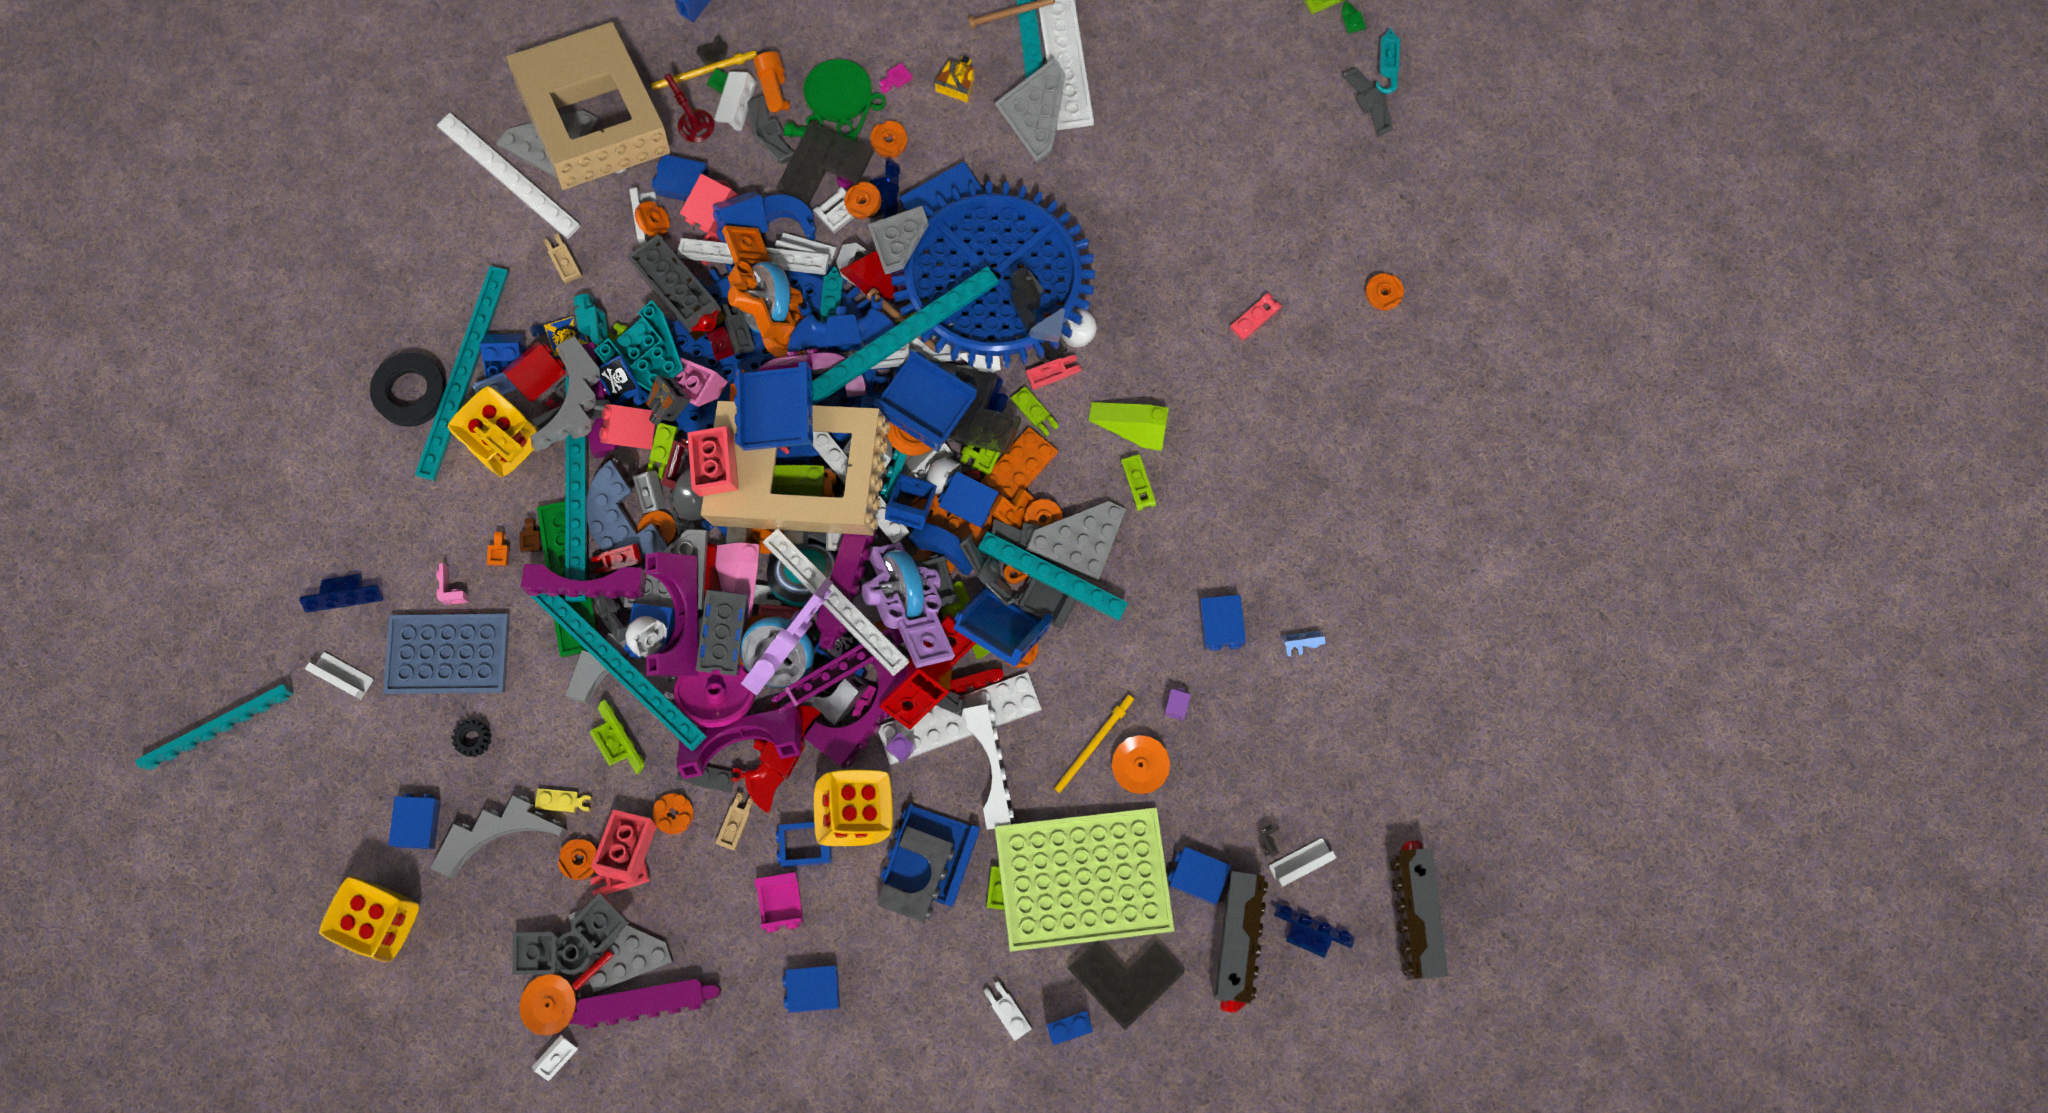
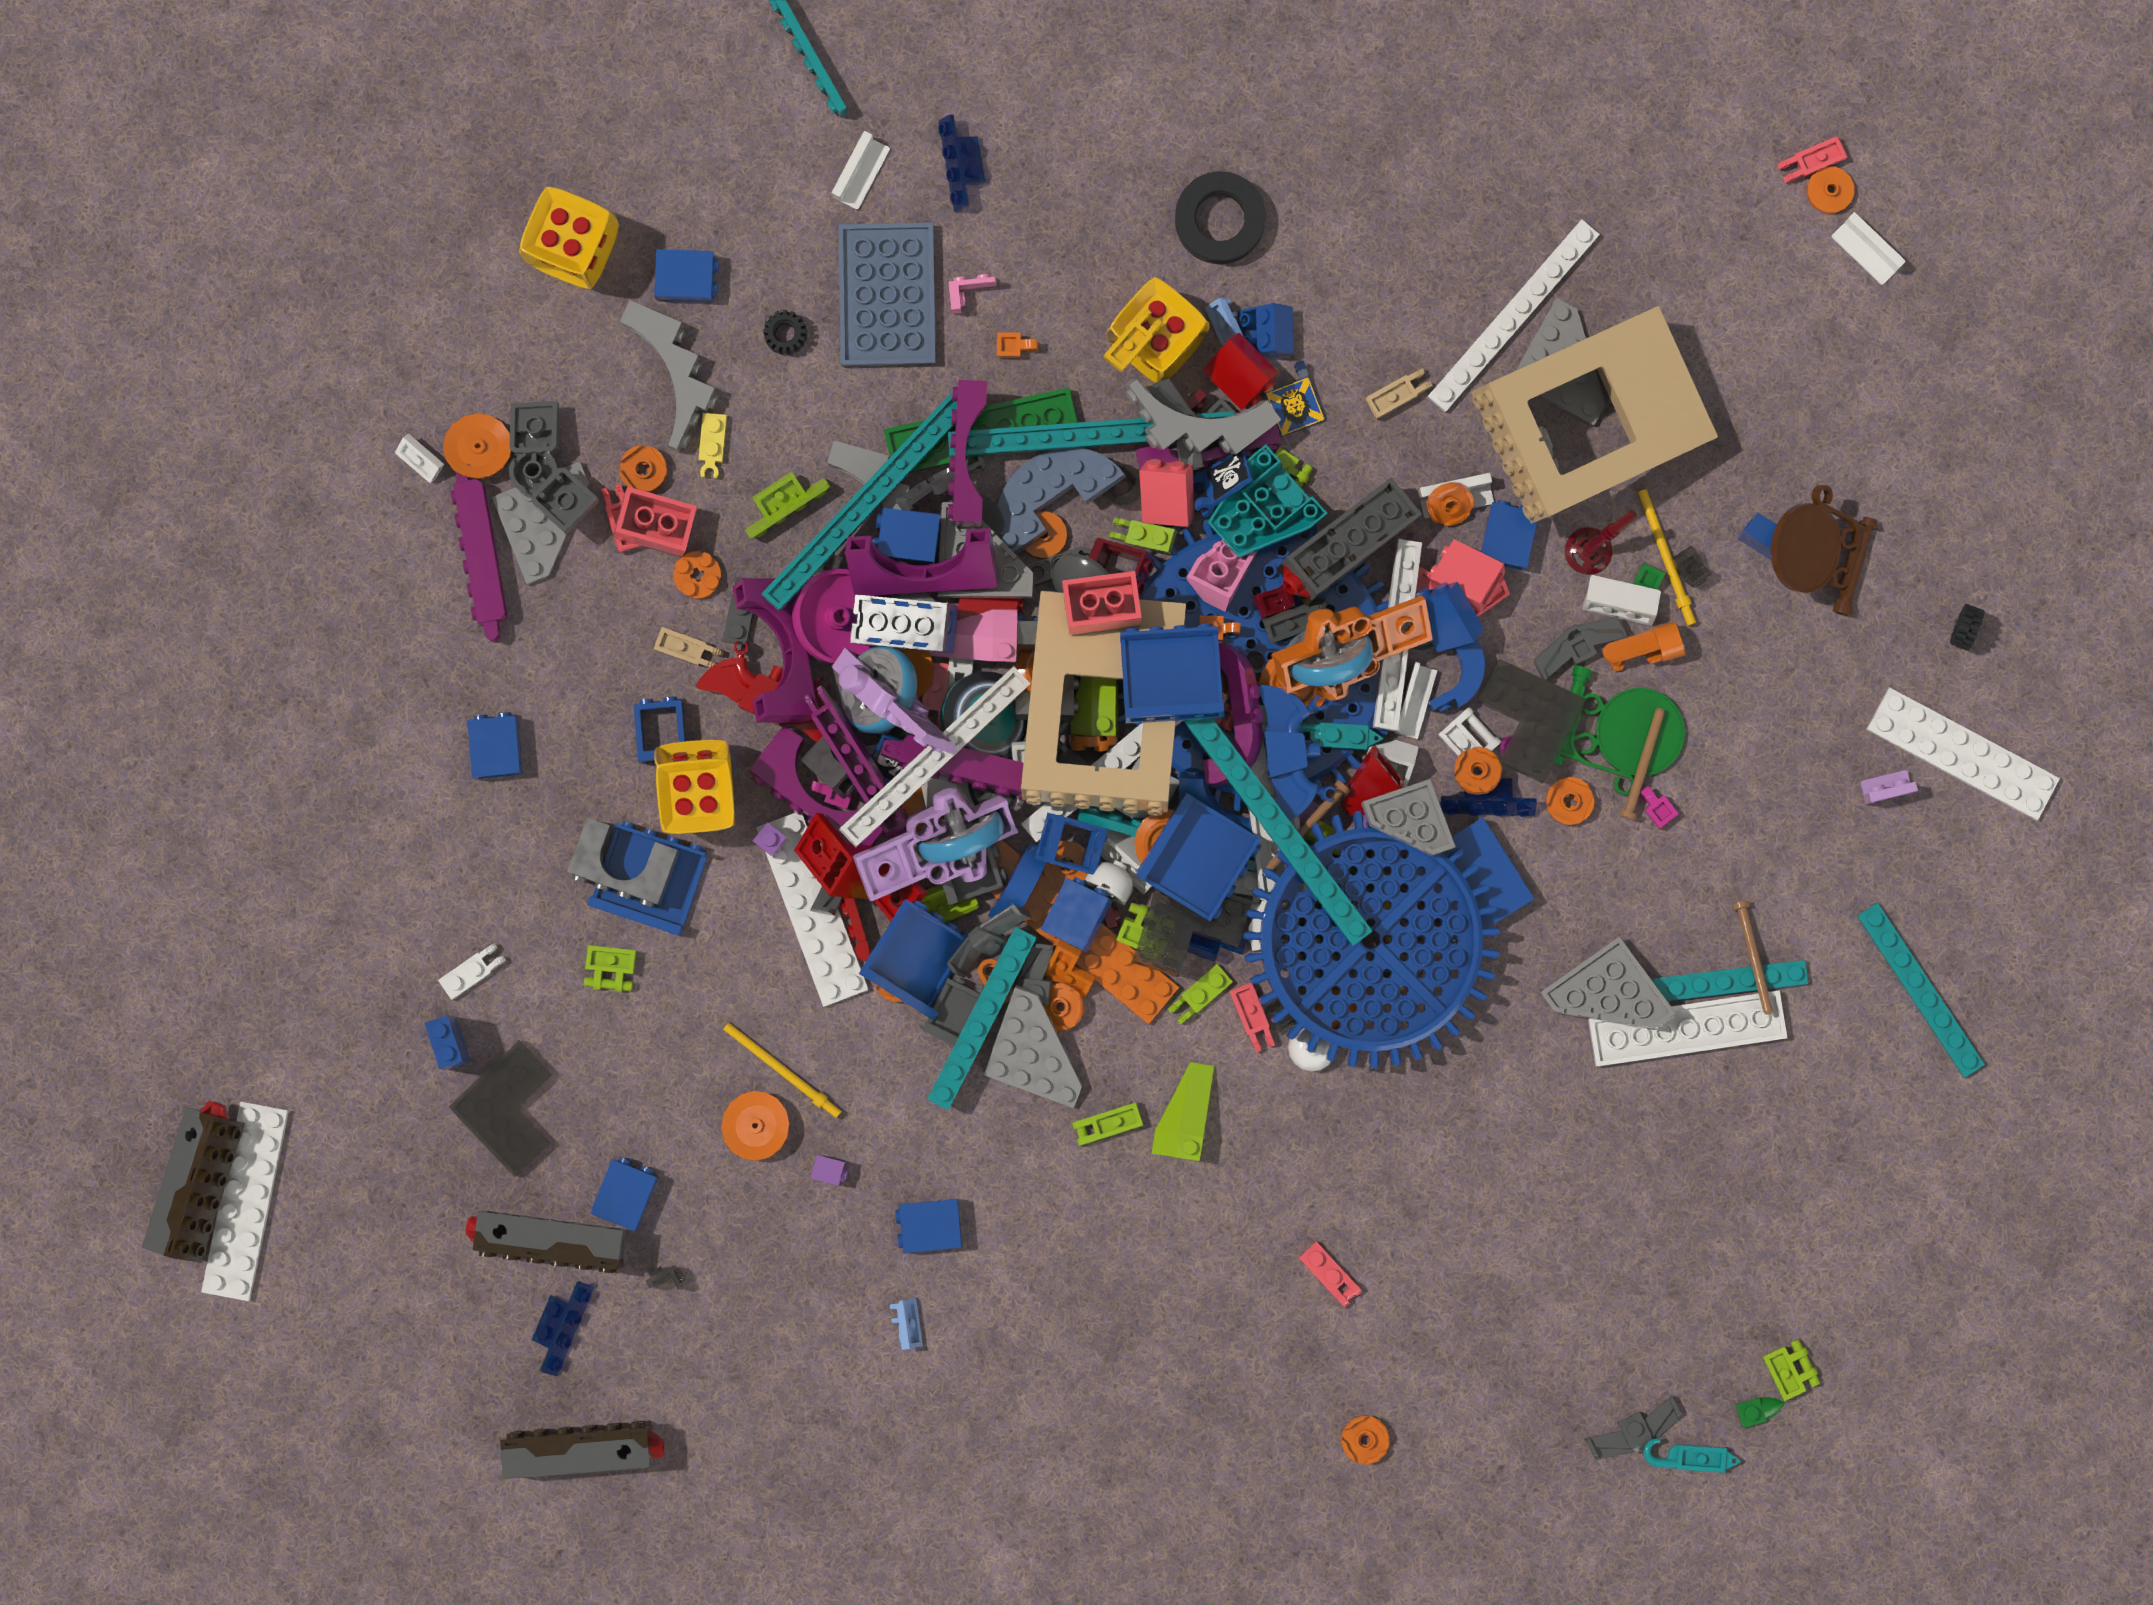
camera: 90 degrees right, 10 degrees up
(462, 373) = (1244, 282): teal plate -> none
(530, 539) = (1028, 382): reddish brown plate -> none
(589, 318) = (1312, 435): teal plate -> none
(592, 970) = (515, 494): red piece -> none
(618, 558) = (1001, 491): hinge -> none
(645, 635) = (895, 532): white cylinder -> none
(649, 491) = (1090, 523): light grey slope -> none
(666, 400) = (1196, 539): dark grey torso -> none
(779, 902) = (594, 704): dark pink panel -> none
(864, 86) = (1644, 761): none -> medium nougat bar
(956, 79) = (1656, 887): torso -> none
(979, 724) = (799, 932): white arch -> none
(1025, 296) = (1331, 981): clear smoke plate -> none
(1049, 328) = (1289, 1011): sand blue slope -> none
(1083, 879) = (619, 1058): yellowish green plate -> none
(1301, 862) = (641, 1316): white panel -> none

